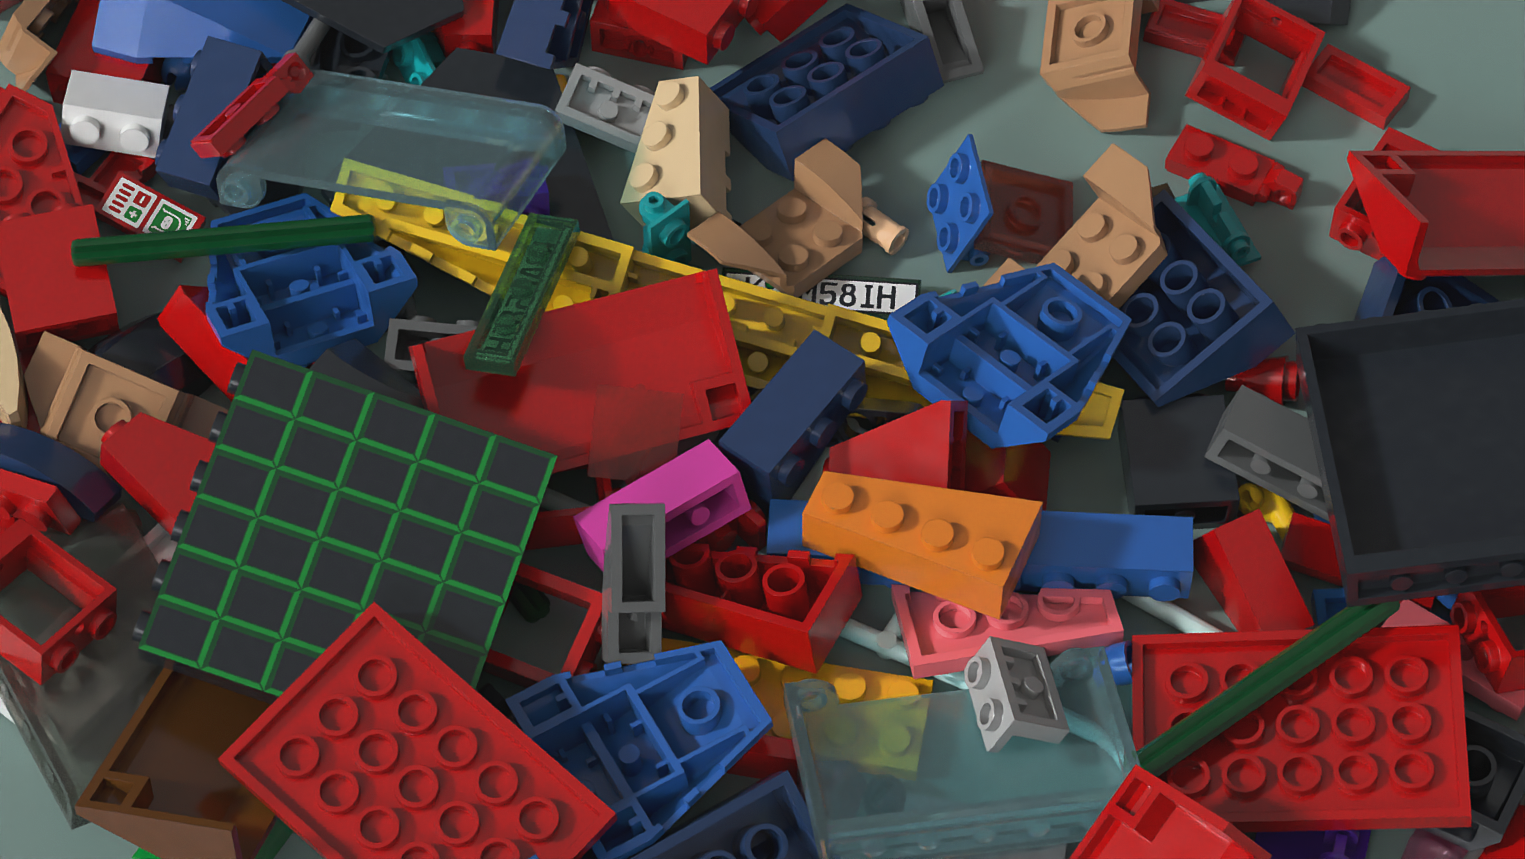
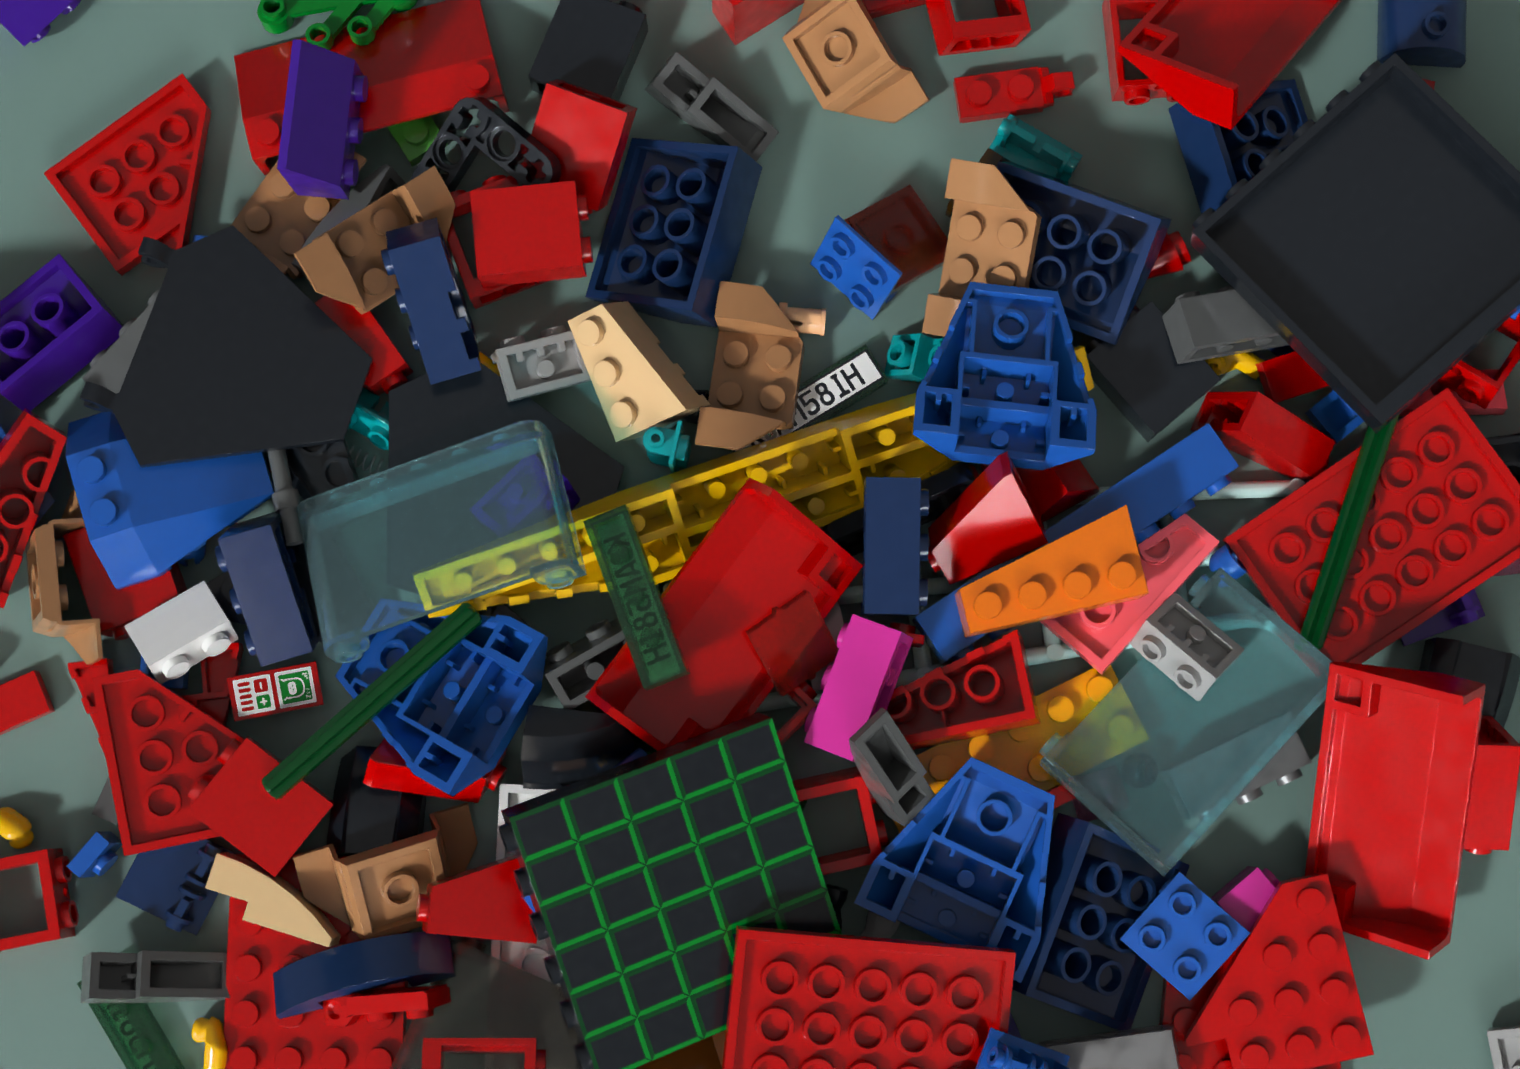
camera: 35 degrees left, 25 degrees up
(251, 107) = (302, 578): red hinge -> none

